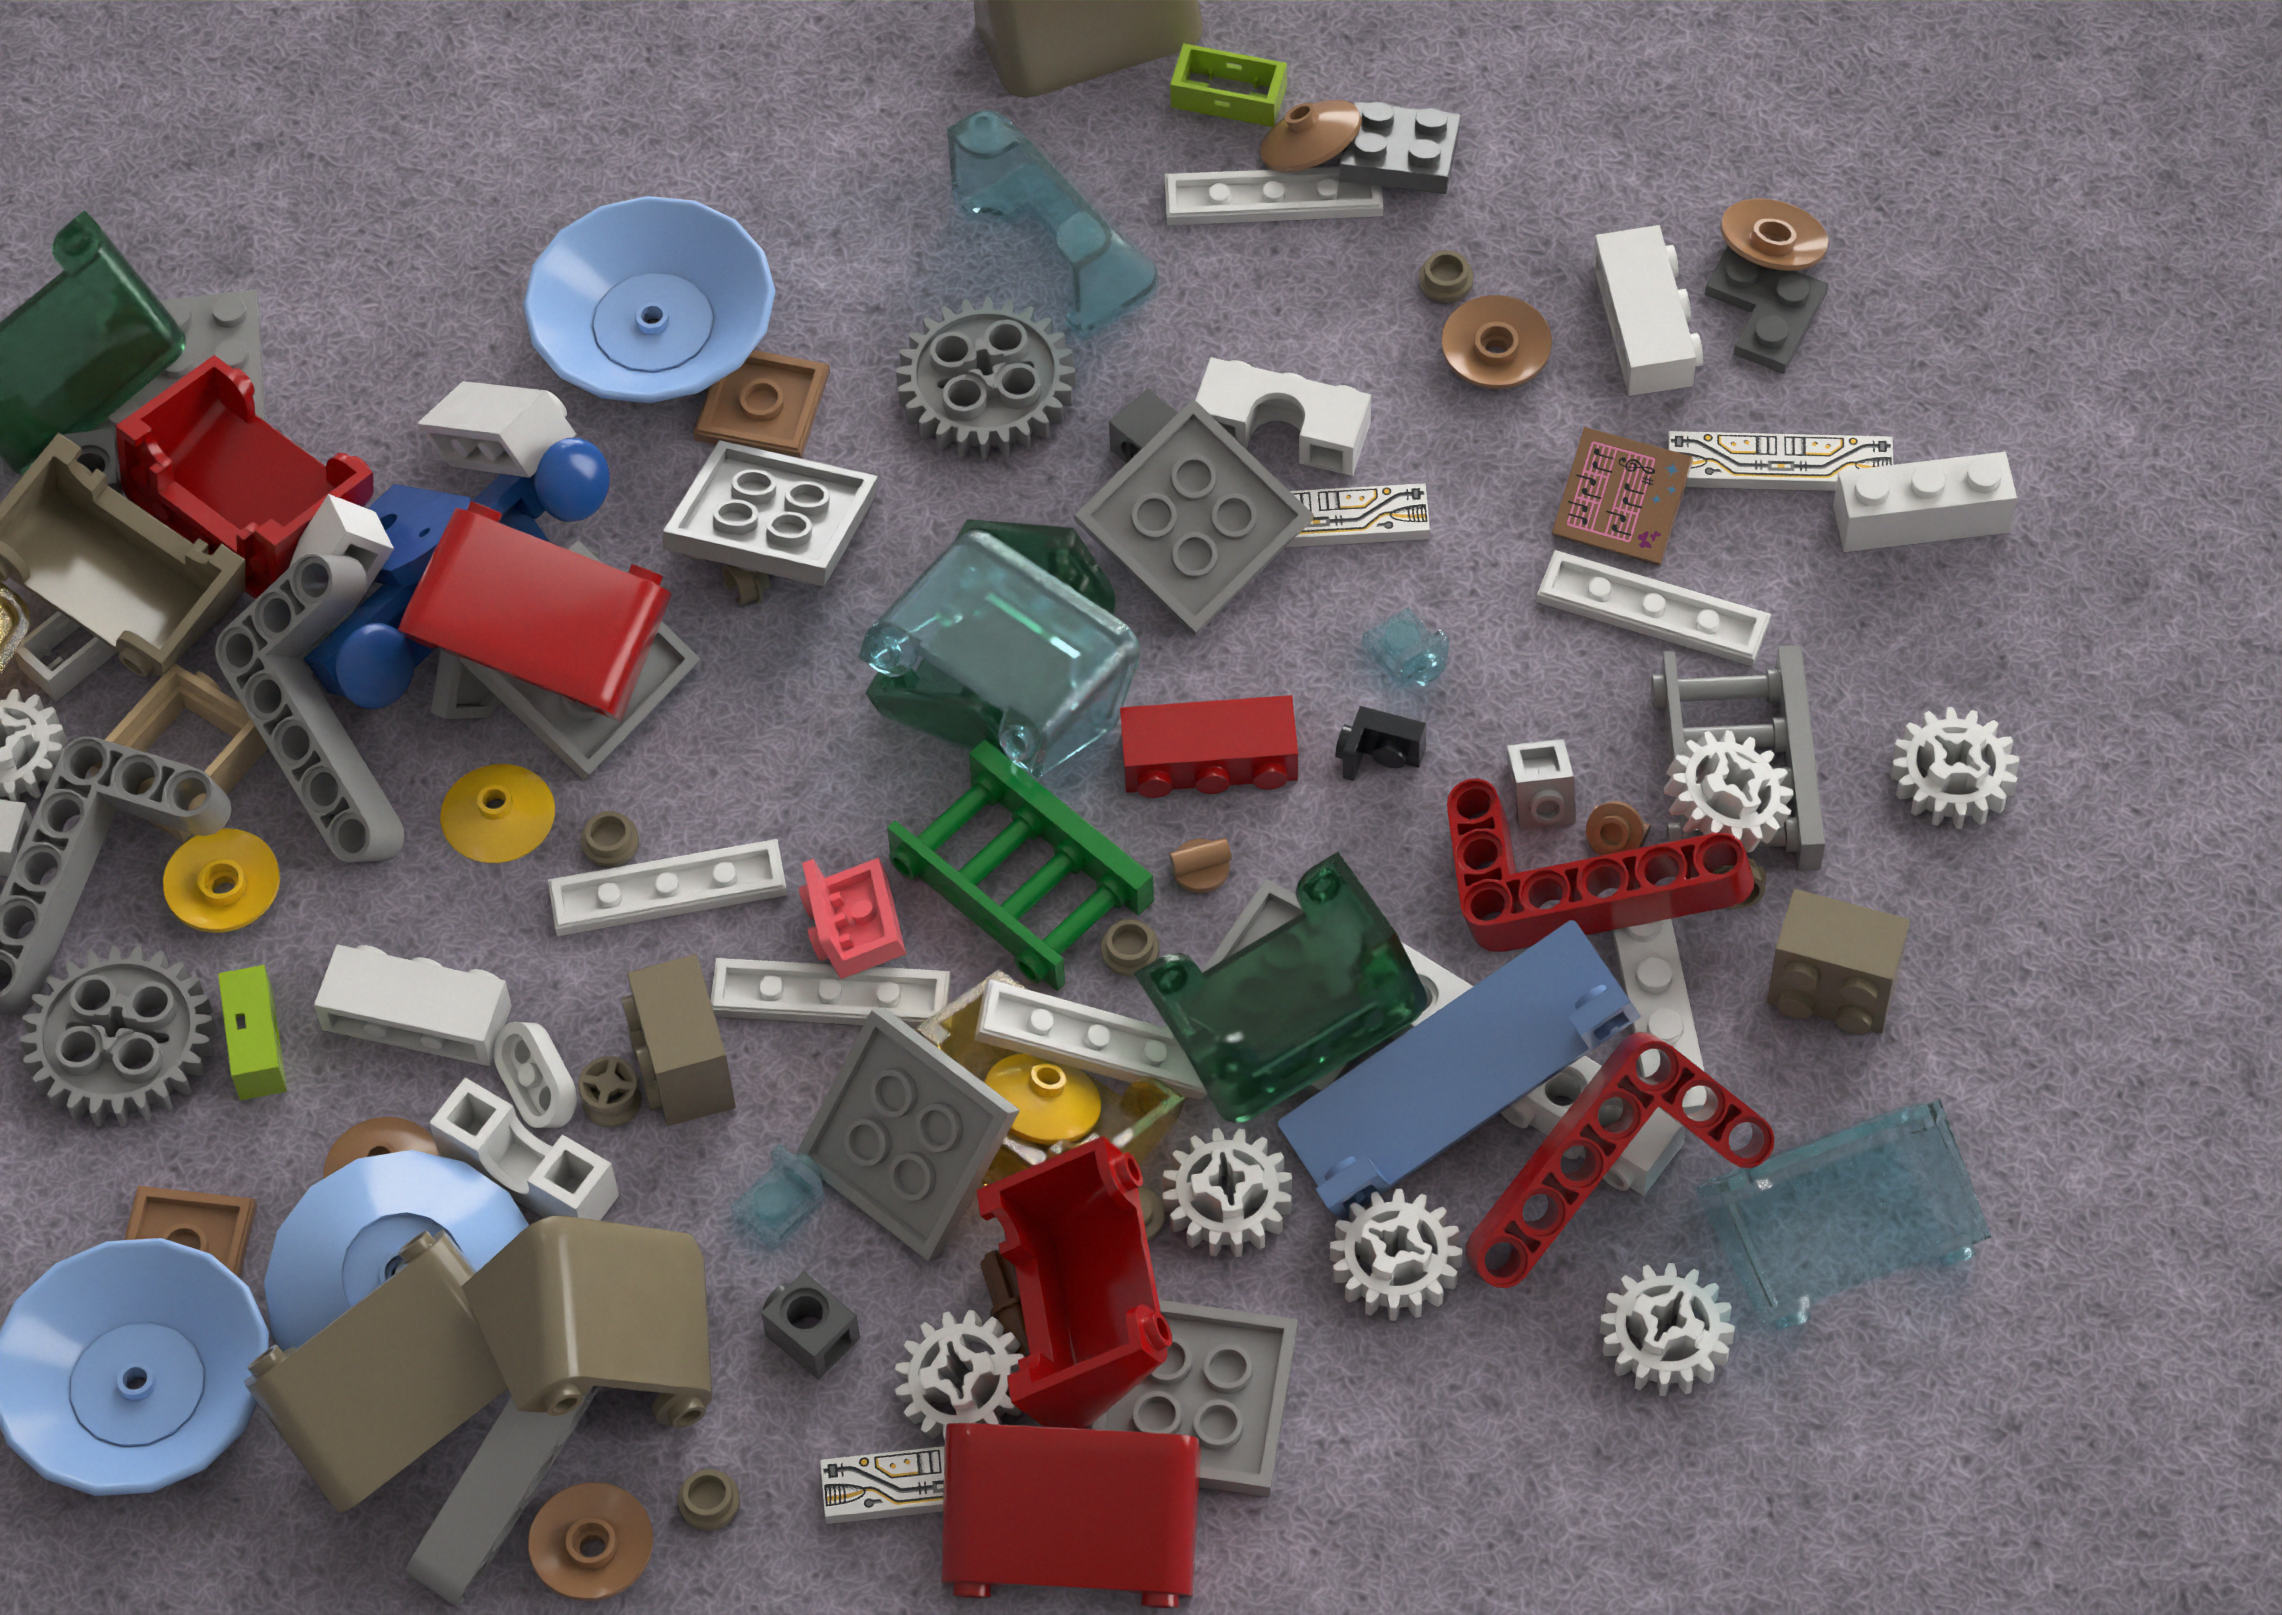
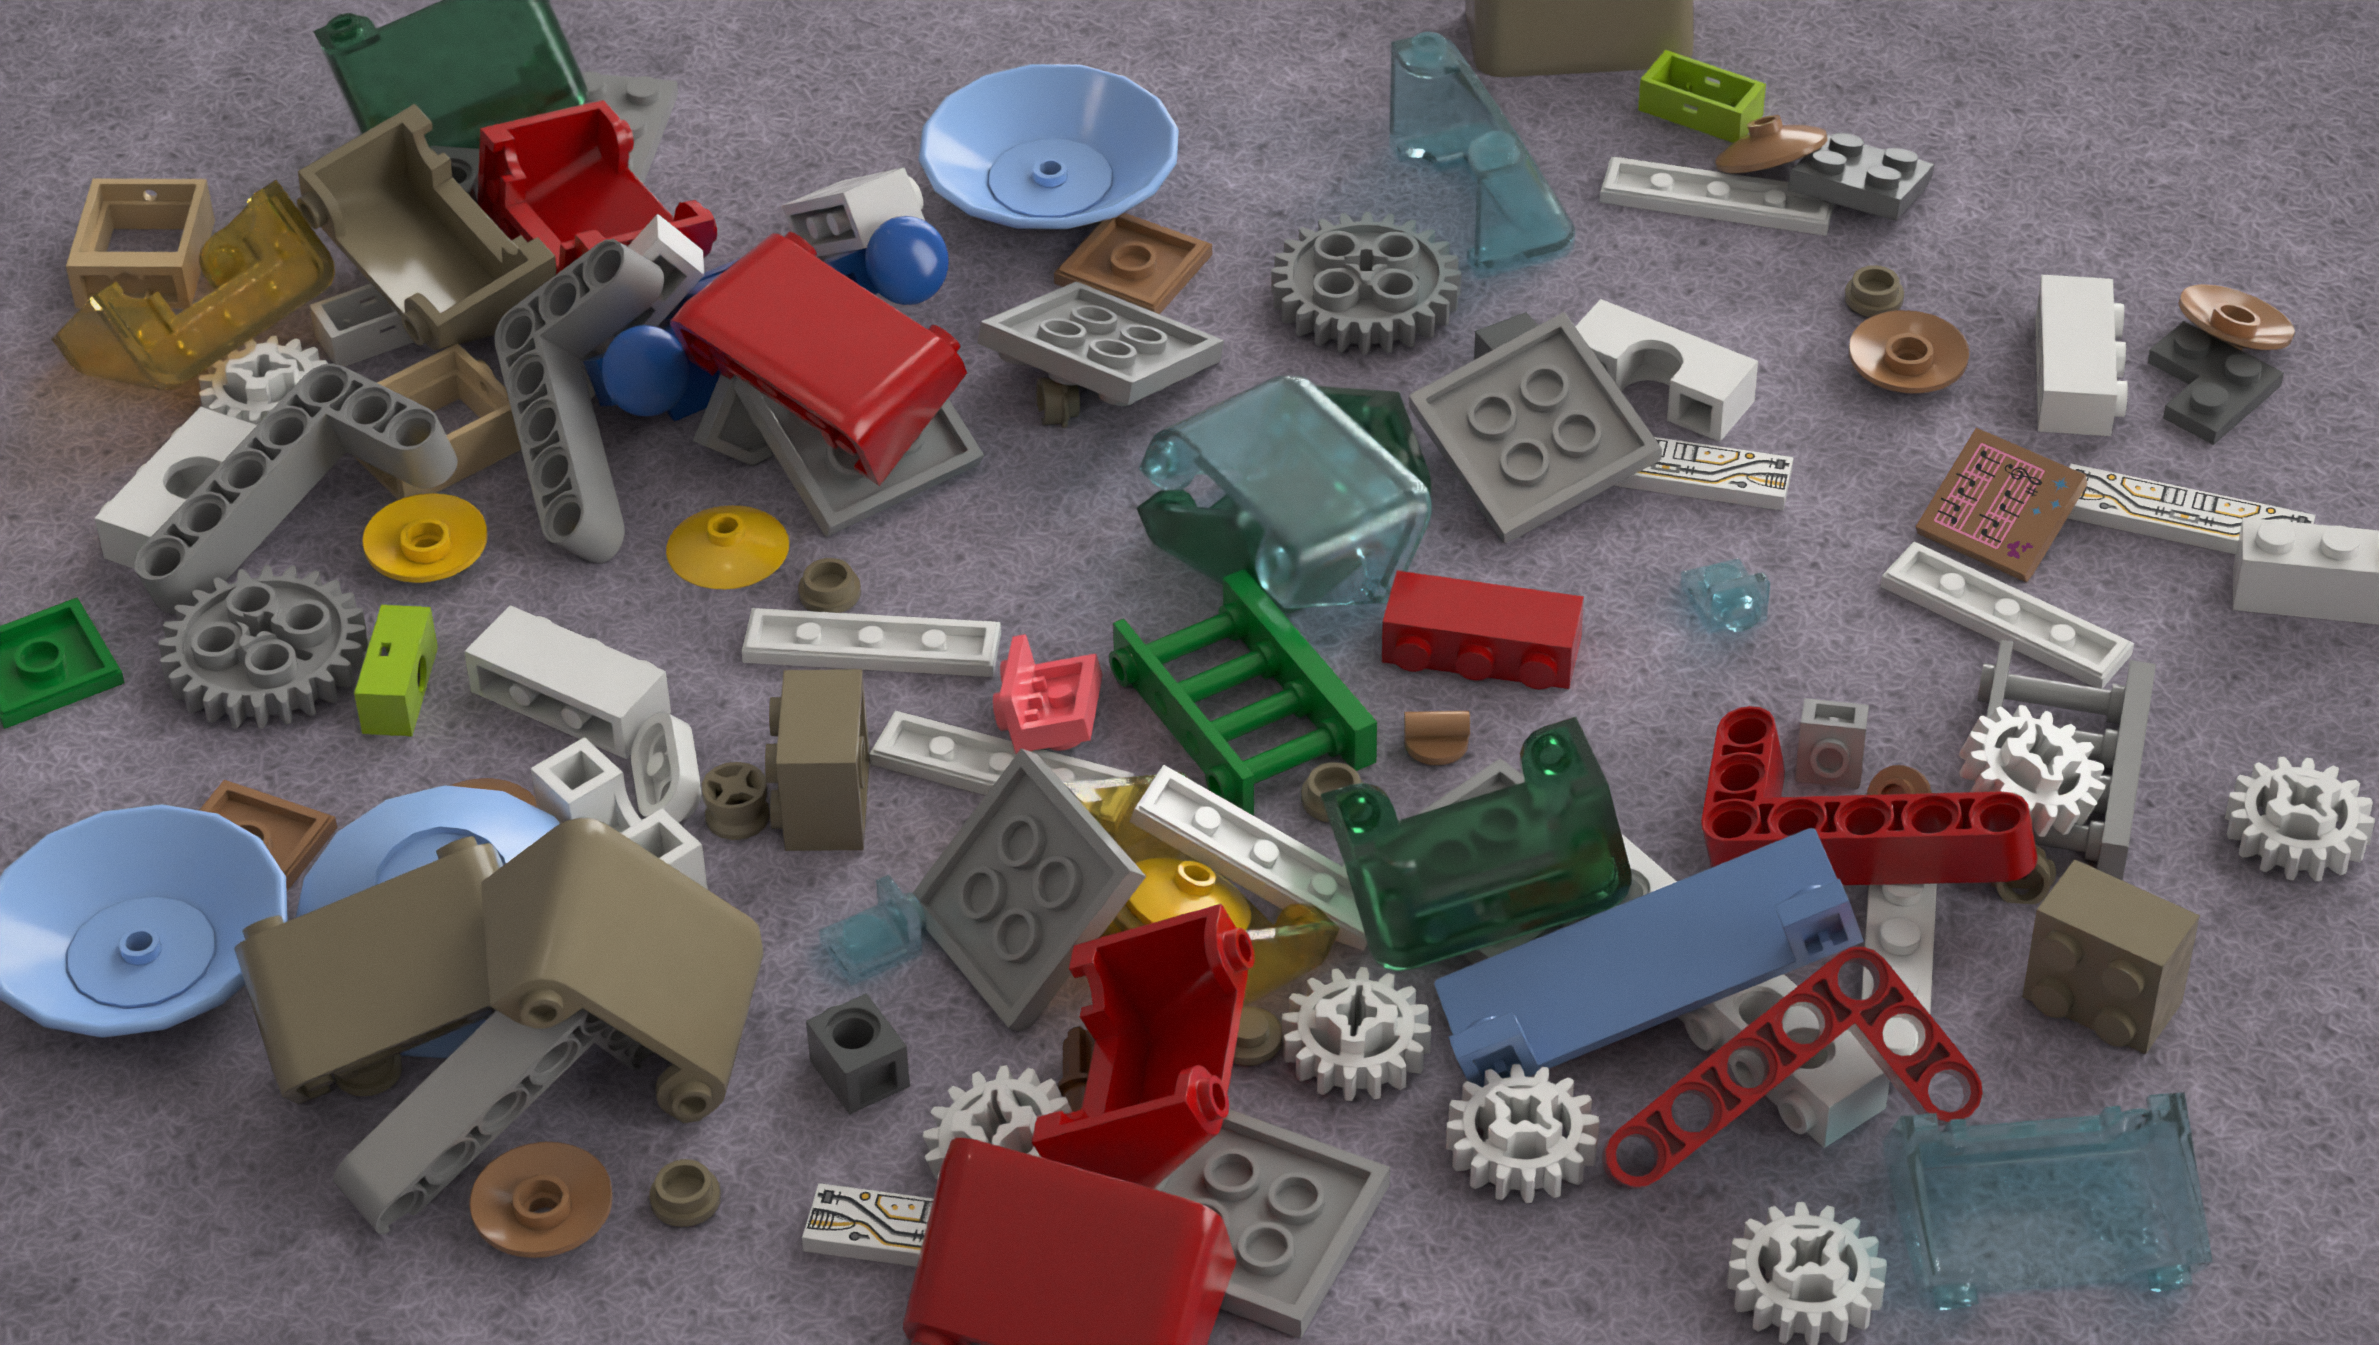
camera: 15 degrees right, 15 degrees down
(1385, 736) = (1671, 660): black bracket -> none

